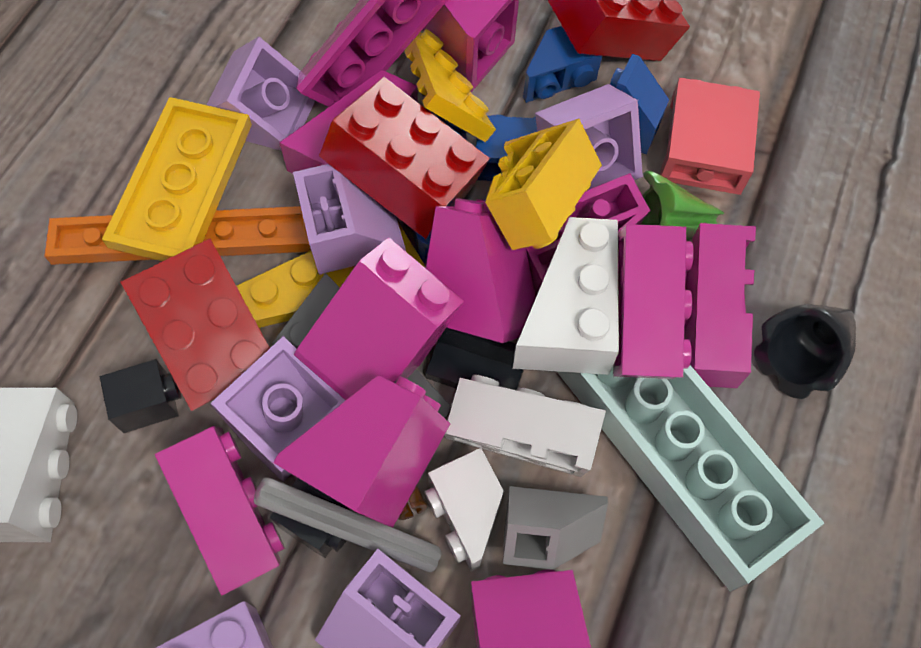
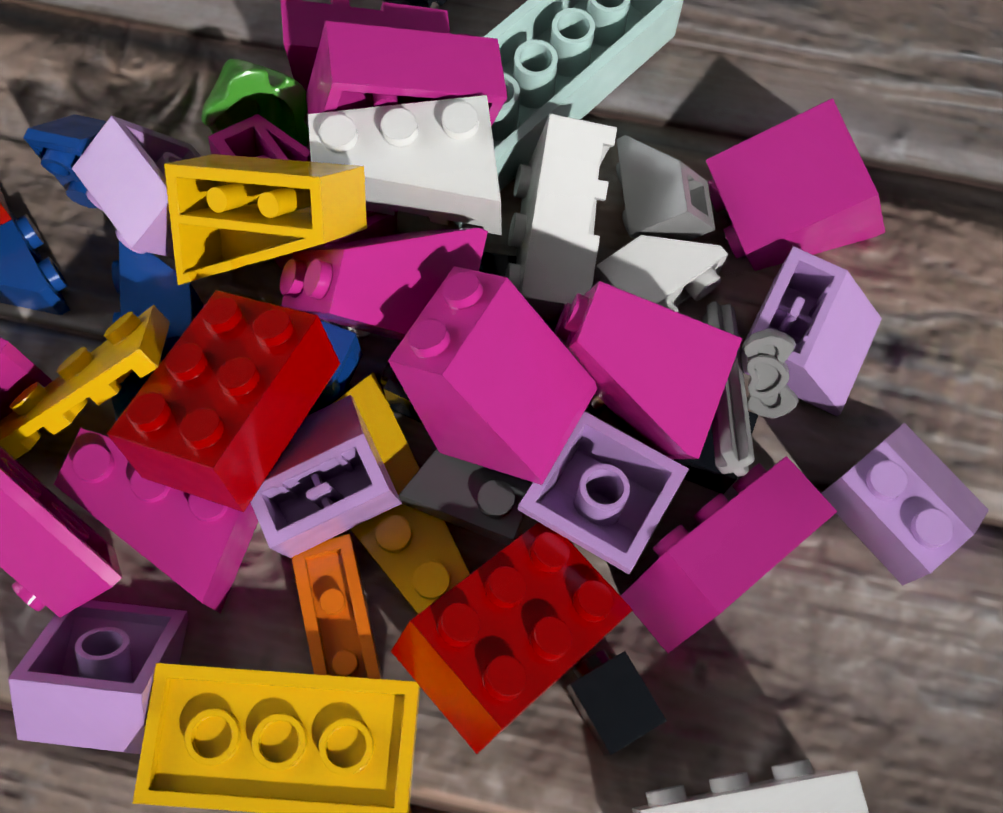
camera: 100 degrees left, 5 degrees up
(345, 560) = (769, 373): none -> light grey piece
(711, 136) = (116, 69): coral panel -> none

